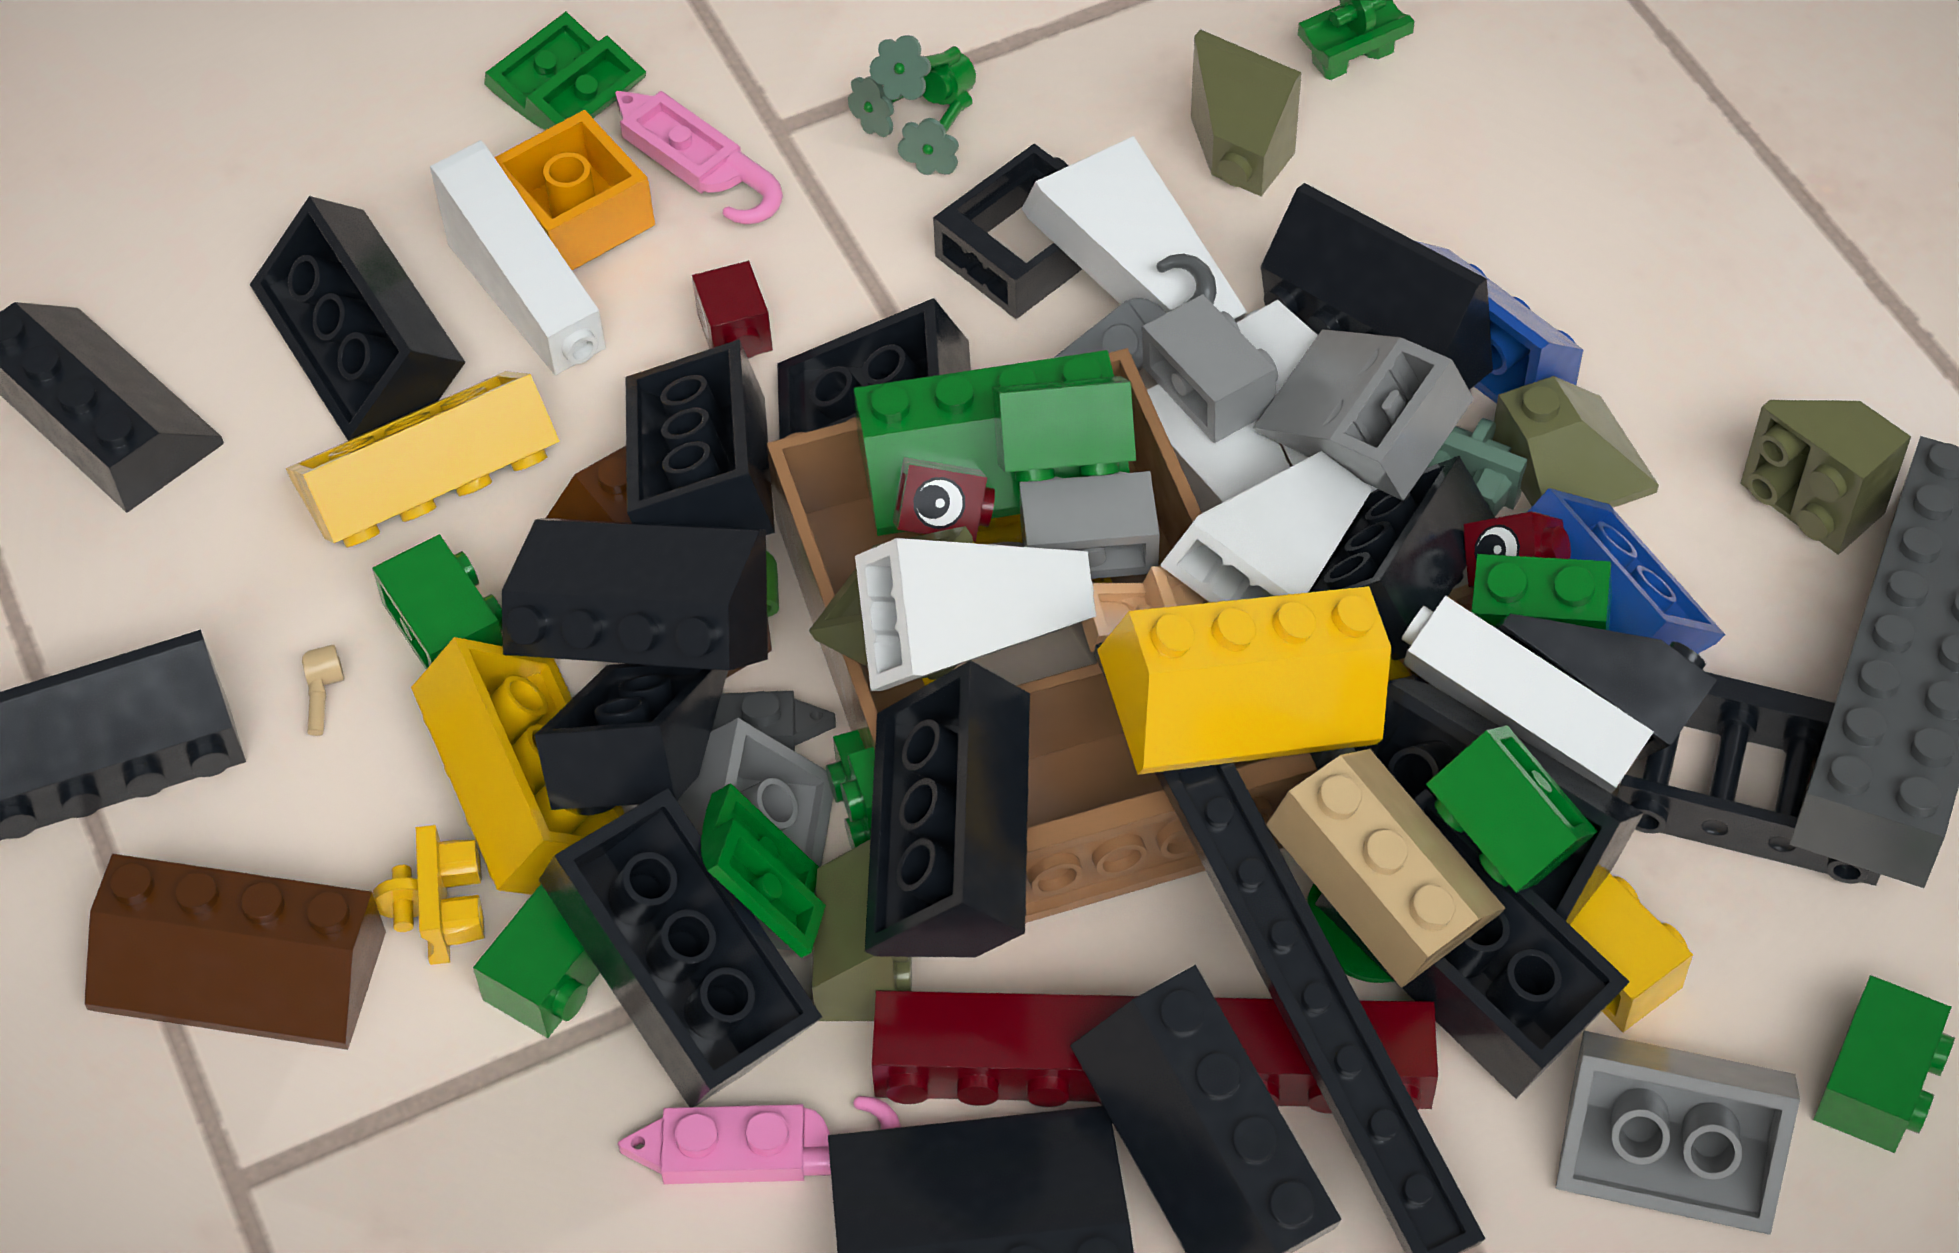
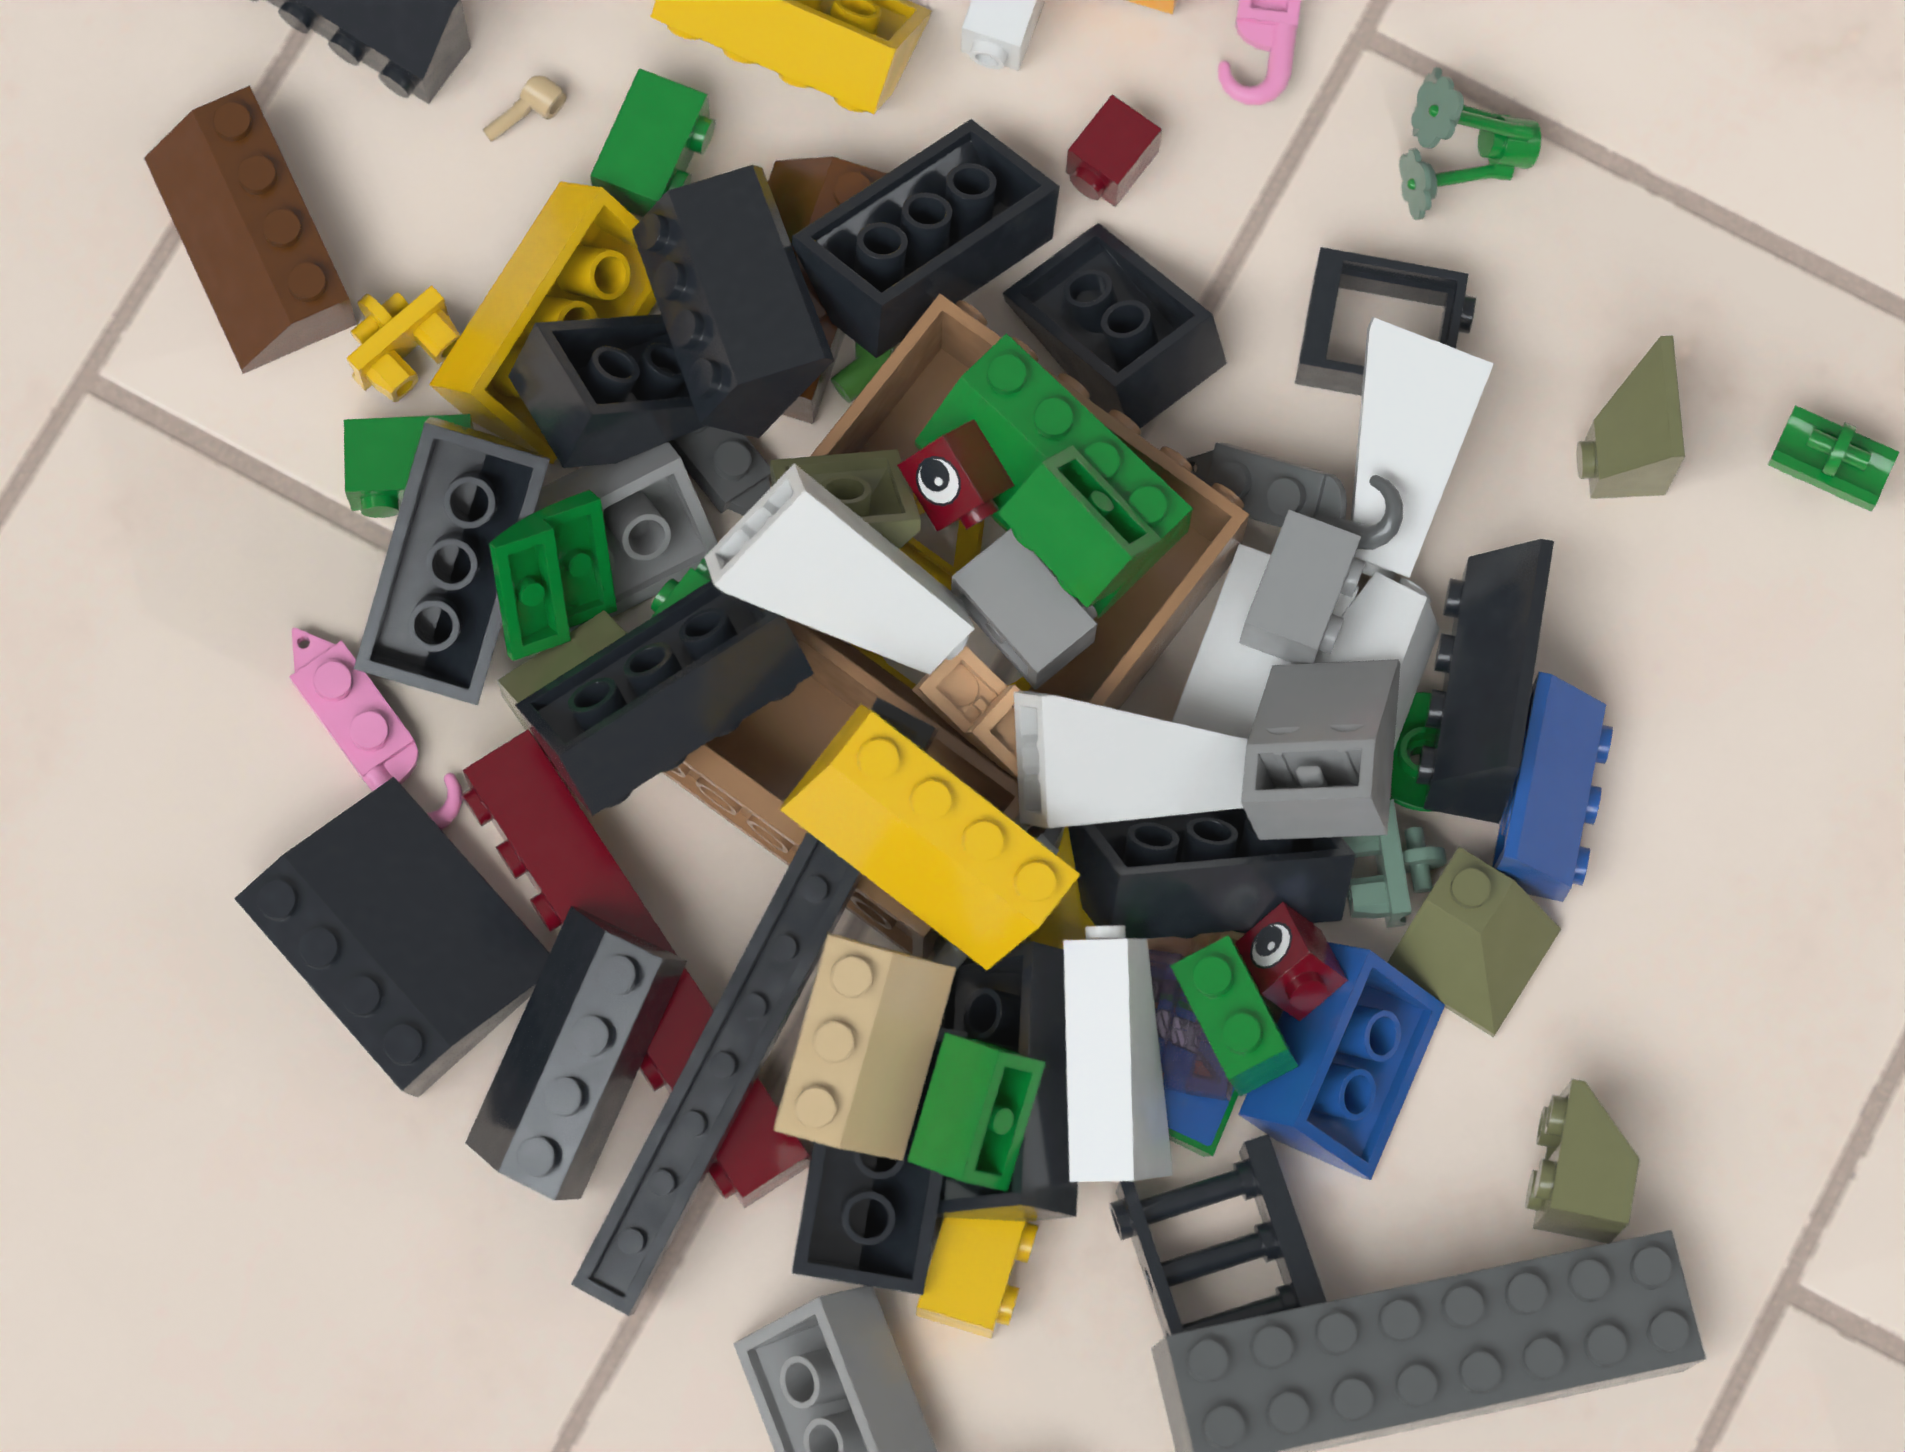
camera: 50 degrees right, 20 degrees up
(1634, 673) = (1187, 1113): black slope -> none

